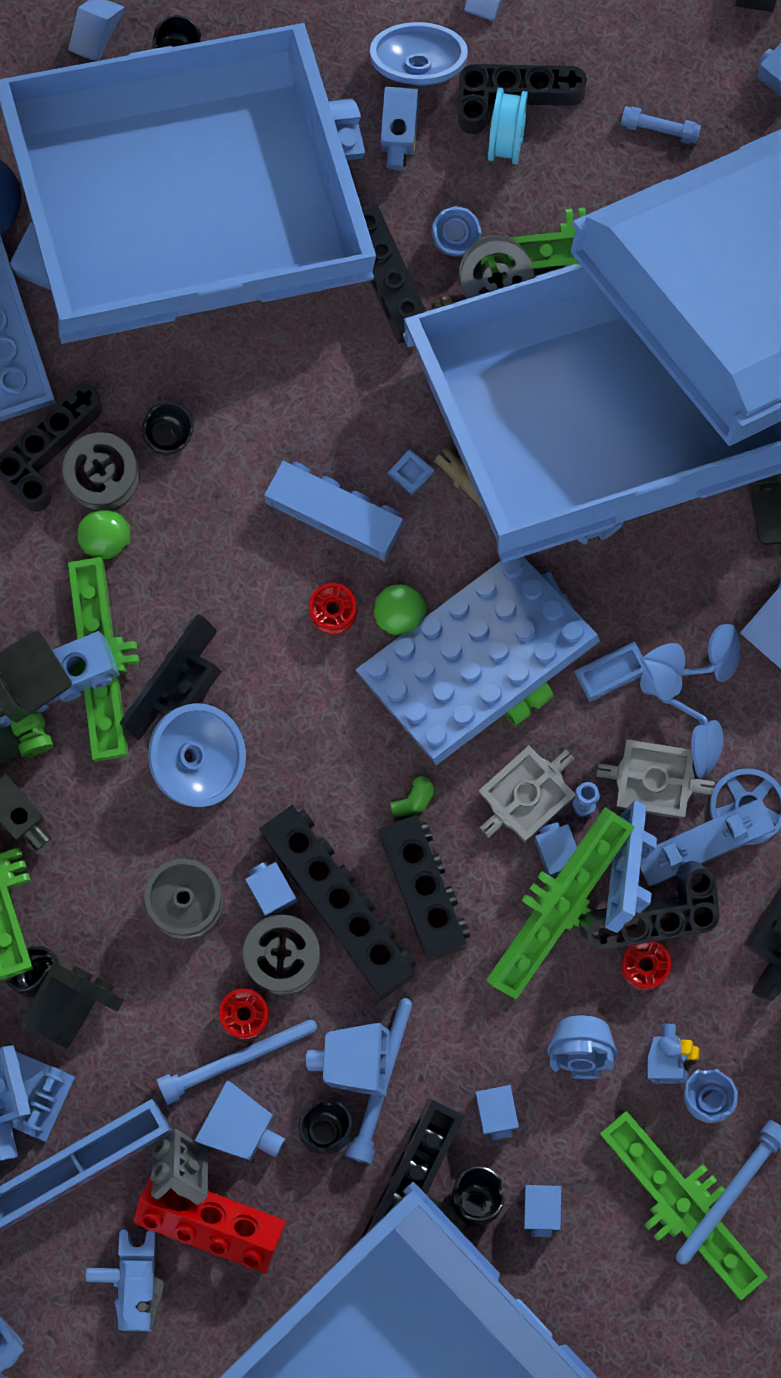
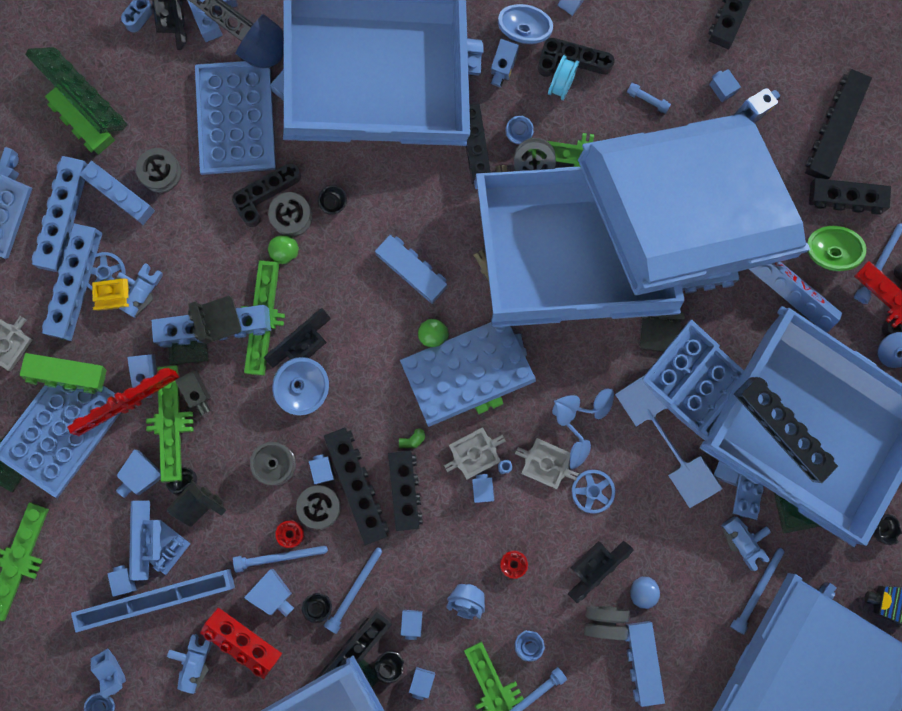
camera: 10 degrees right, 5 degrees up
(32, 735) = (215, 351): bright green wheel -> none
(180, 1166) = (232, 610): dark grey bracket -> none
(327, 596) = (396, 315): red wheel -> none
(354, 1059) = (342, 575): medium blue torso -> none
(411, 472) = (459, 258): medium blue tile -> none
(559, 903) = (475, 520): bright green hinge -> none
(610, 671) = (538, 397): medium blue tile -> none
(624, 893) = (523, 496): medium blue hinge -> none
(649, 926) = (497, 539): black beam -> none
(668, 1056) = (512, 618): medium blue piece -> none
(707, 841) = (564, 506): medium blue hinge -> none

